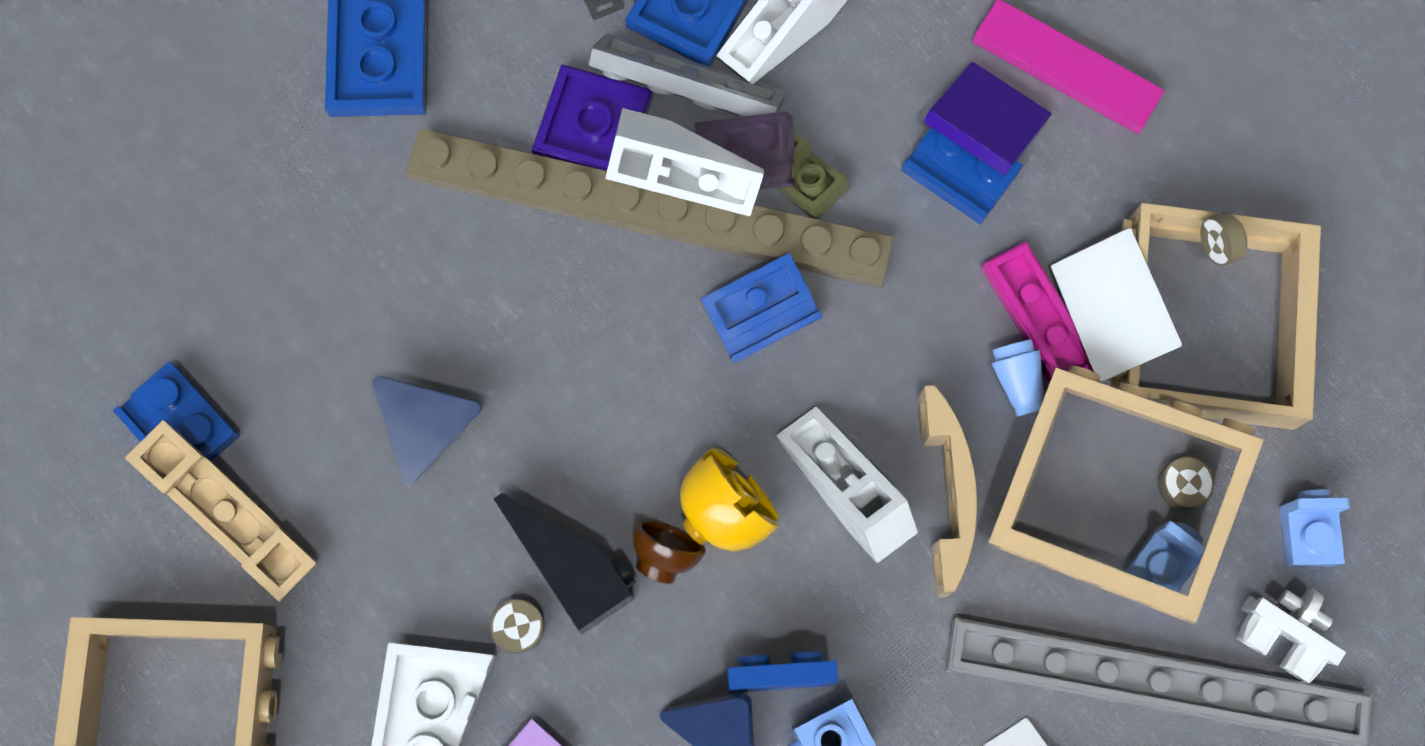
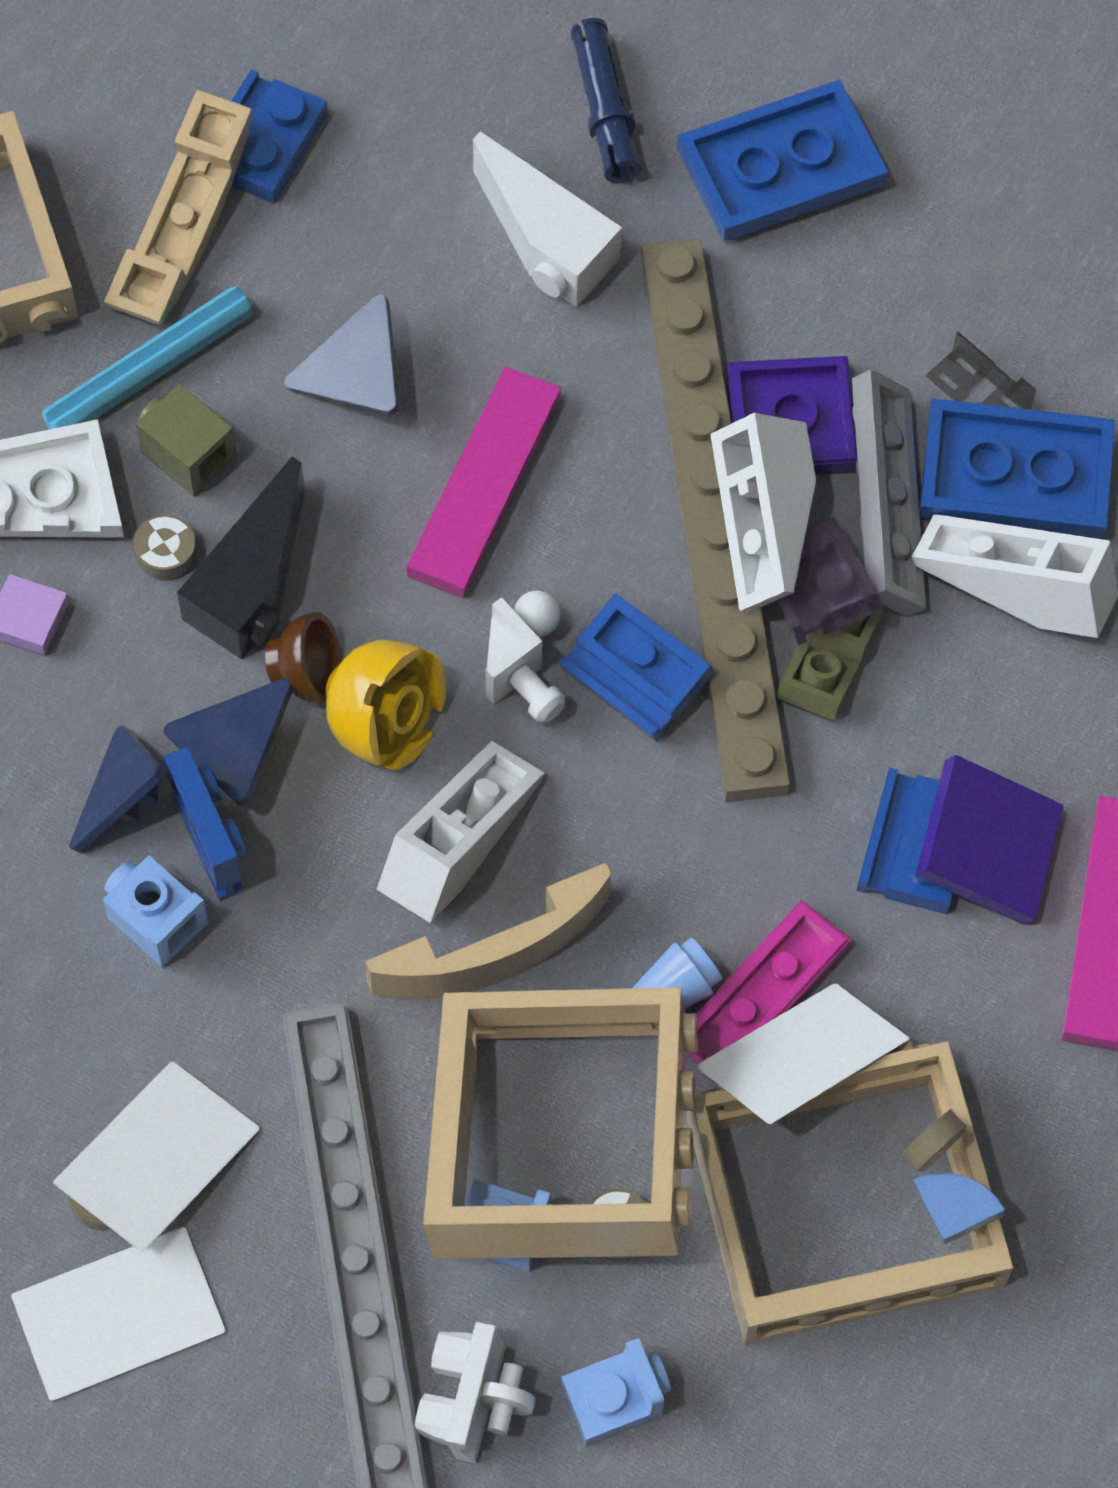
camera: 70 degrees right, 10 degrees down
(286, 153) = (610, 119): none -> dark blue pin
(347, 585) = (150, 360): none -> medium azure axle
(361, 234) = (553, 231): none -> white slope
(431, 578) = (185, 439): none -> olive brick
(558, 362) = (483, 482): none -> dark pink tile
(712, 629) = (234, 736): none -> dark blue piece
(715, 389) = (517, 653): none -> white piece
(1271, 243) = (957, 1204): none -> medium blue tile

